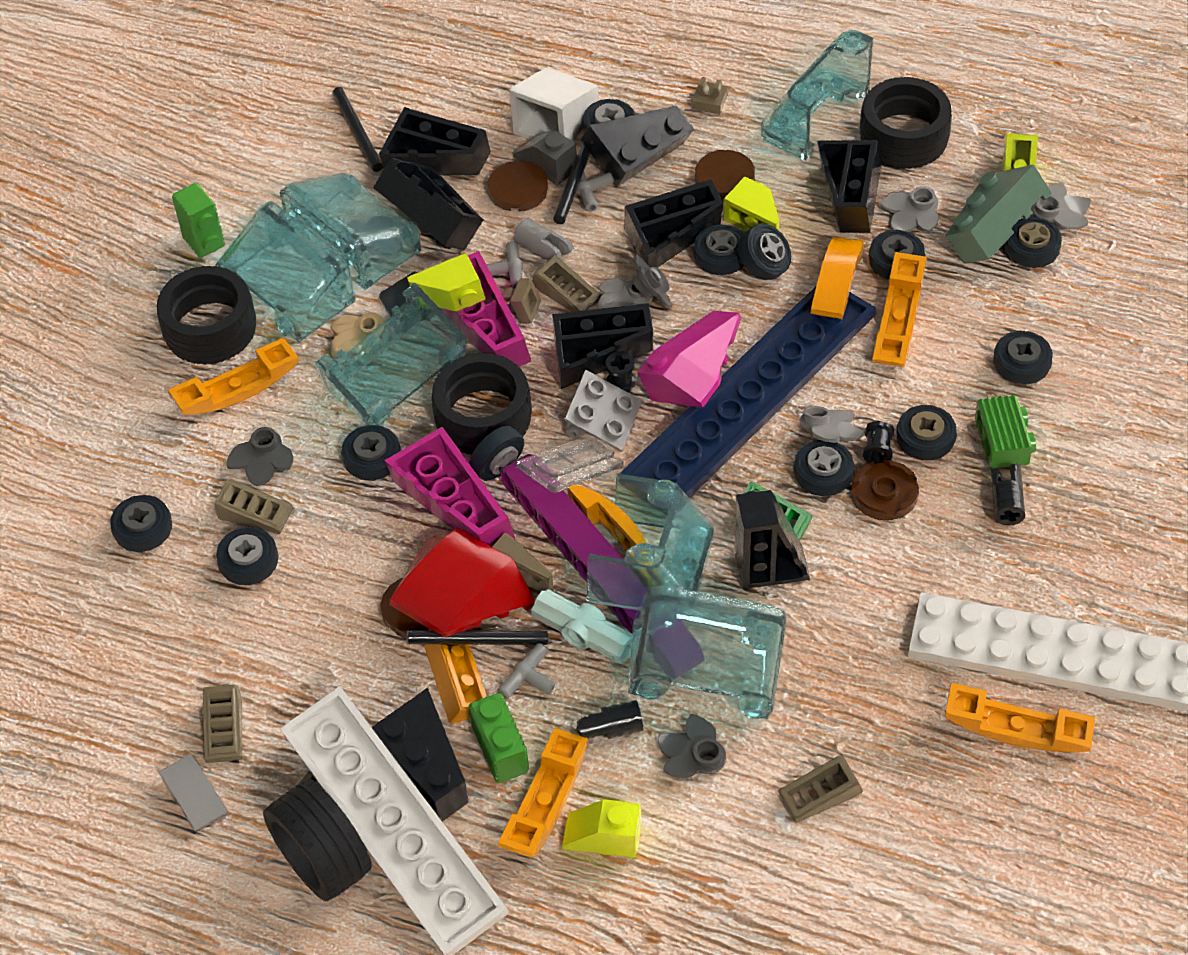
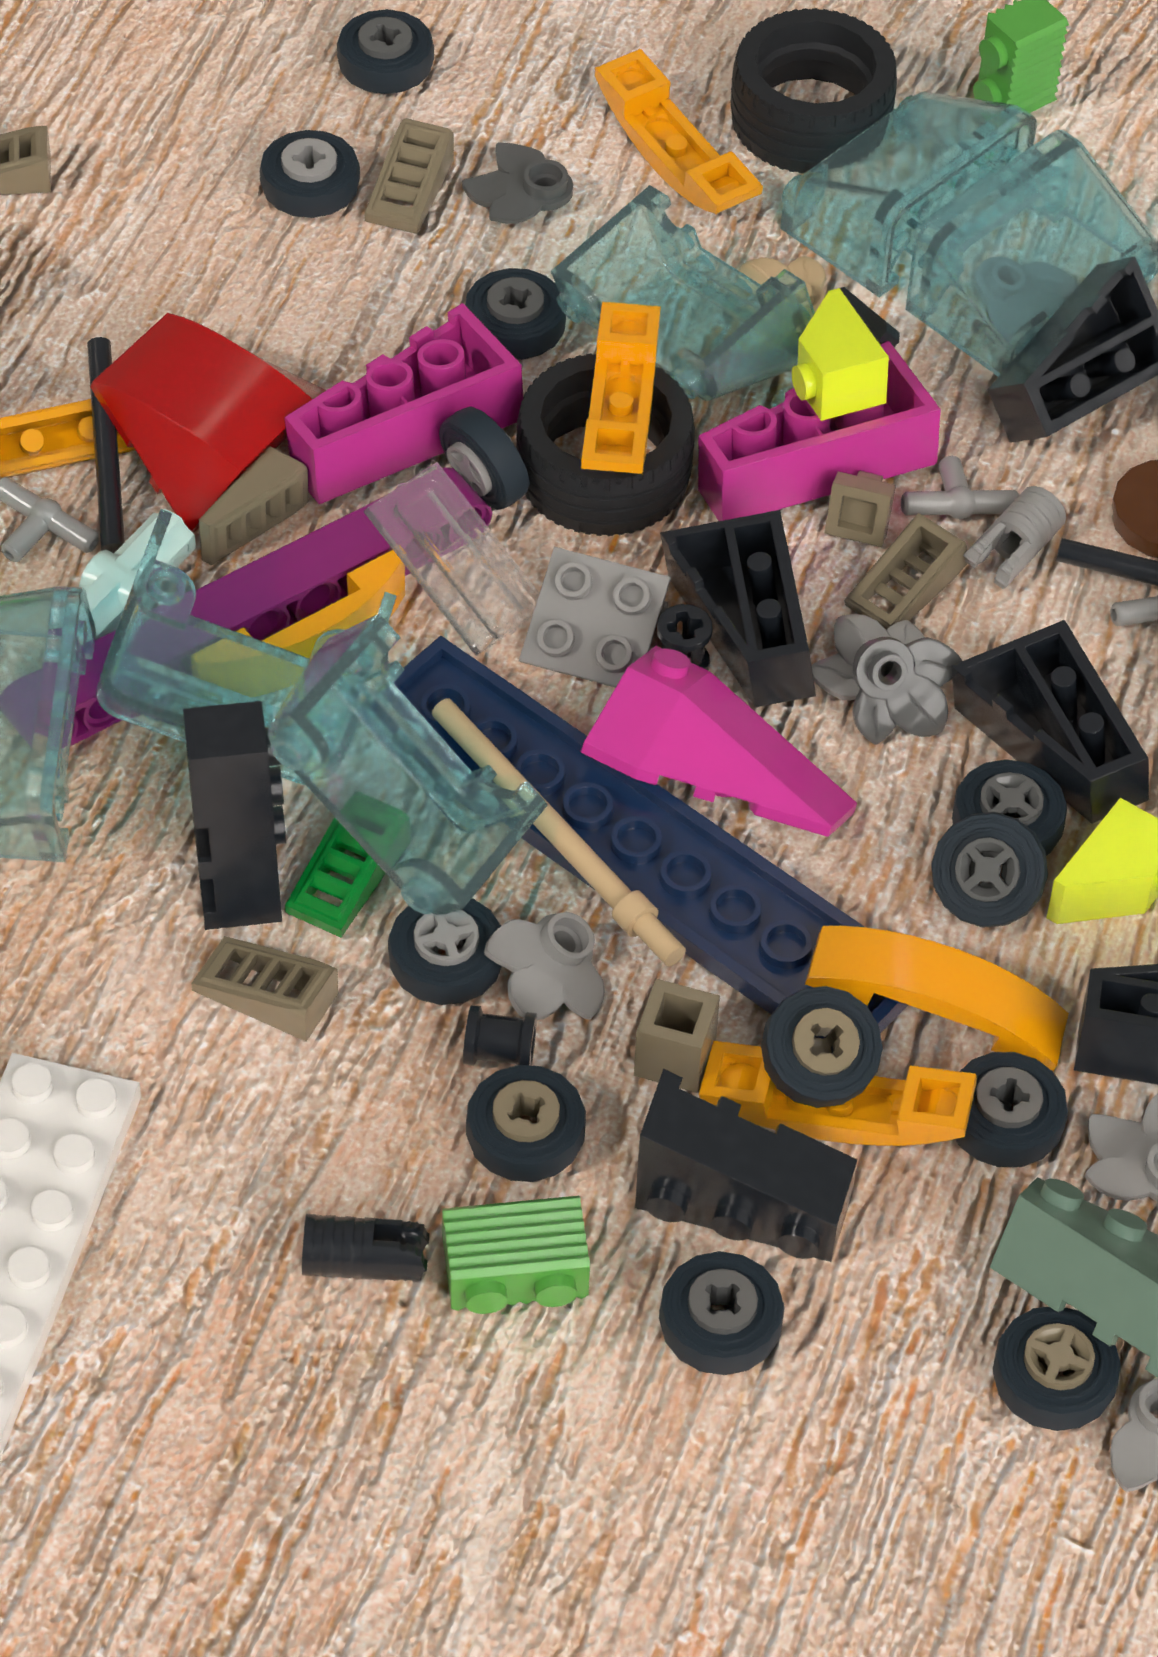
camera: 85 degrees right, 0 degrees up
(478, 378) = (622, 388): none -> light orange slope
(753, 458) = (394, 776): none -> clear light blue windscreen
(802, 386) = (630, 908): none -> tan bar
(861, 524) = (291, 1015): none -> dark tan slope
(877, 367) = (676, 1033): none -> dark tan brick
(882, 309) = (804, 1064): none -> black wheel
(885, 490) = (397, 1053): reddish brown tile -> none
(954, 347) = (738, 1178): none -> black wedge

